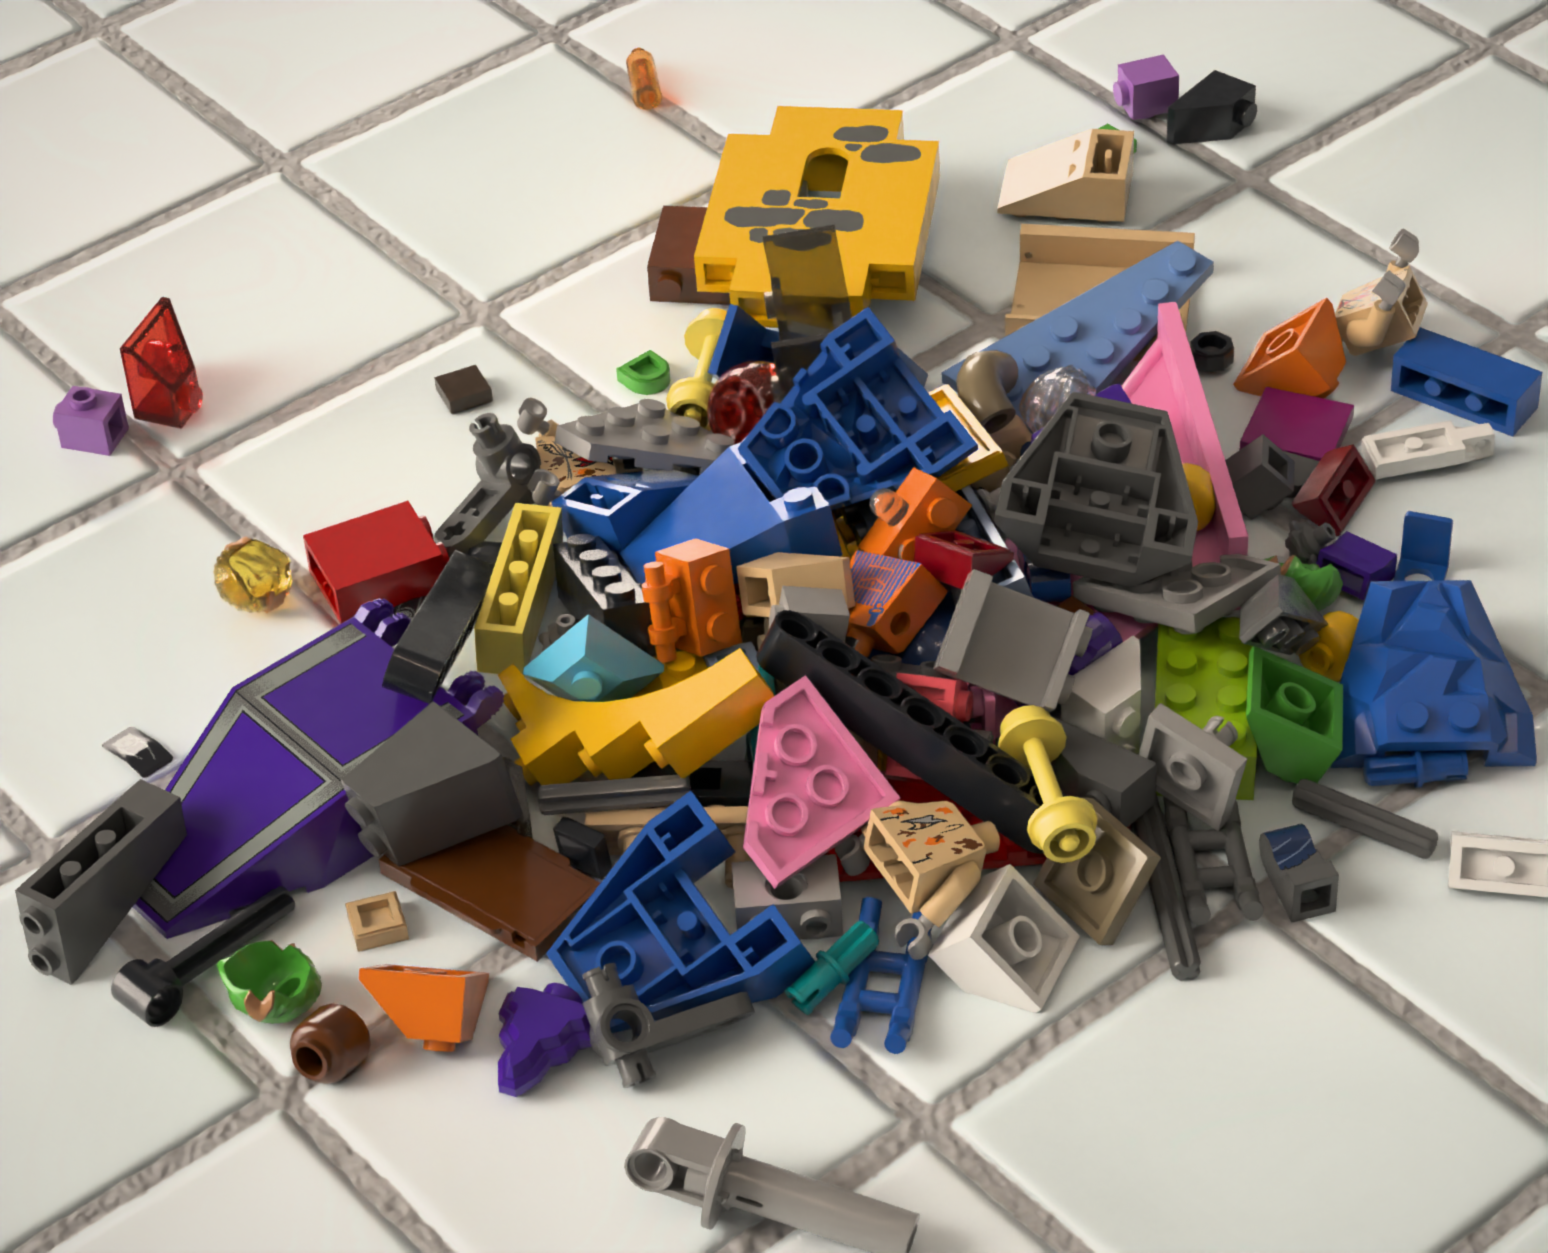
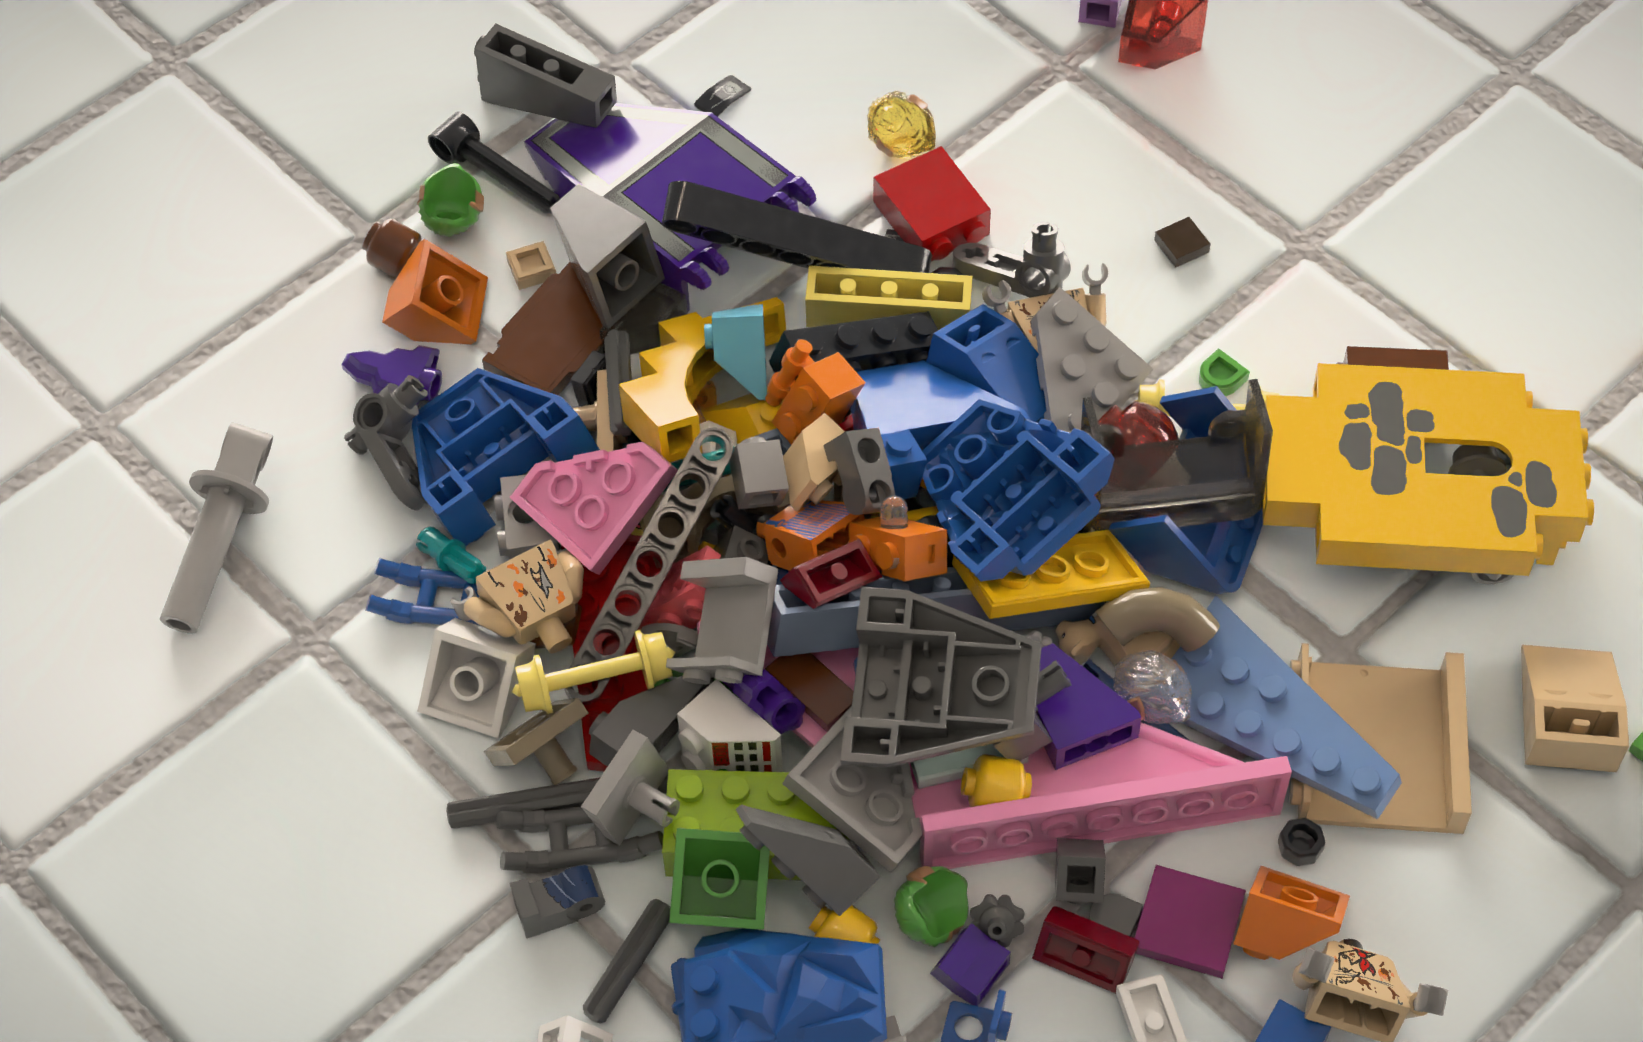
camera: 85 degrees right, 15 degrees up
(831, 523) = (862, 469): none -> dark grey leg

